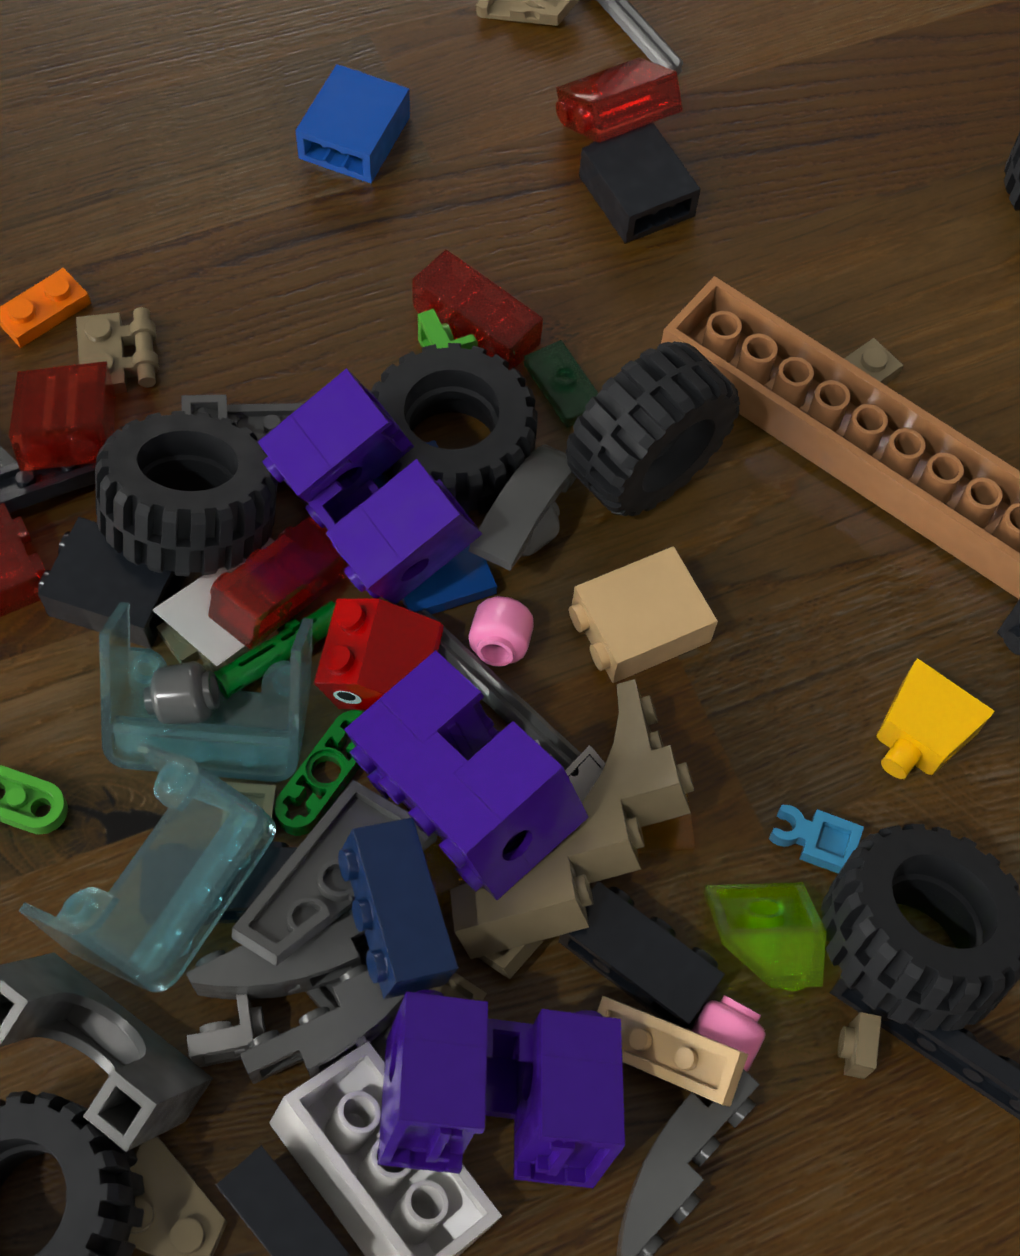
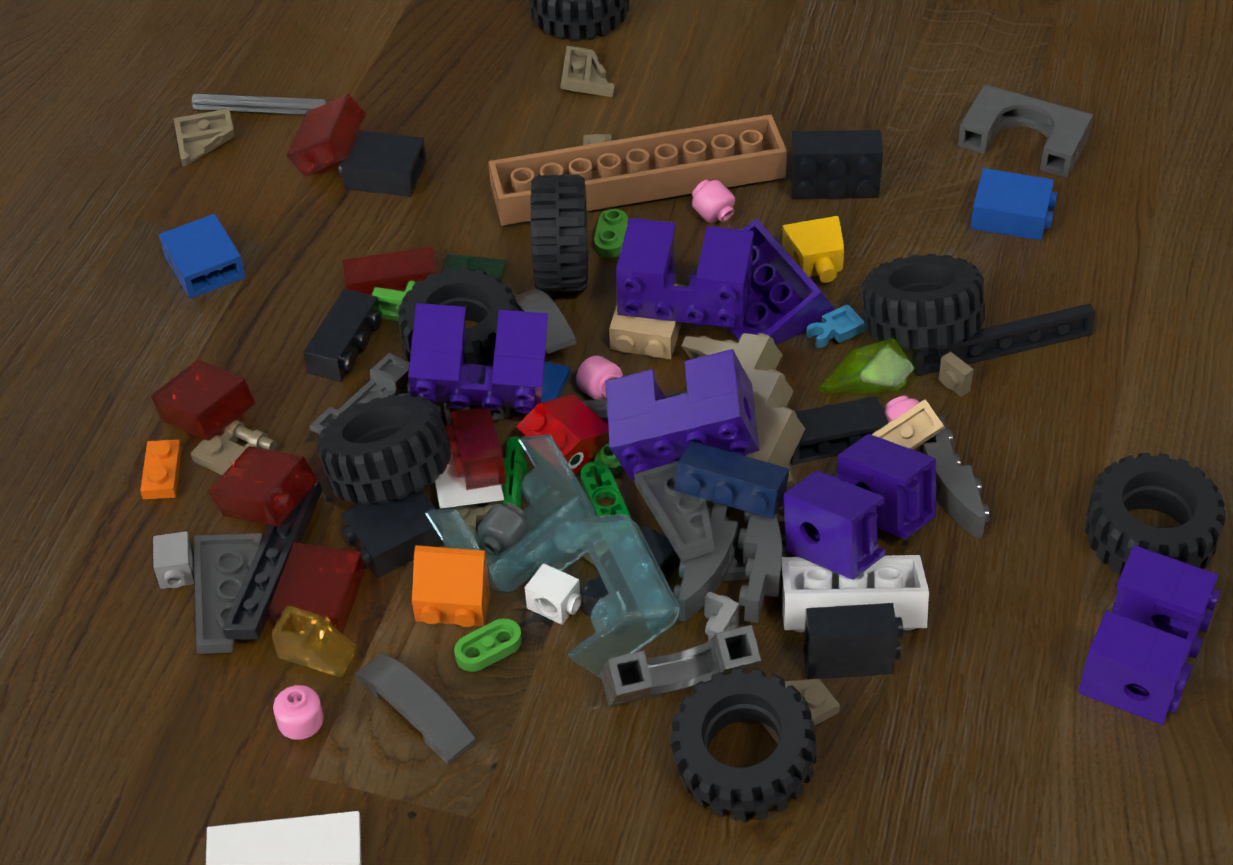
camera: 45 degrees left, 15 degrees down
(53, 705) = (450, 586): none -> orange slope
(131, 813) = (553, 594): none -> white brick
(144, 273) = (203, 399): none -> clear red brick
(351, 329) = (342, 335): none -> black brick
(713, 664) = (714, 294): none -> dark purple piece
(753, 477) = (610, 233): none -> bright green plate
(799, 707) = (780, 292): none -> dark purple slope
(895, 550) = (713, 201): none -> bright pink head
(974, 266) = (584, 73): none -> dark tan wing

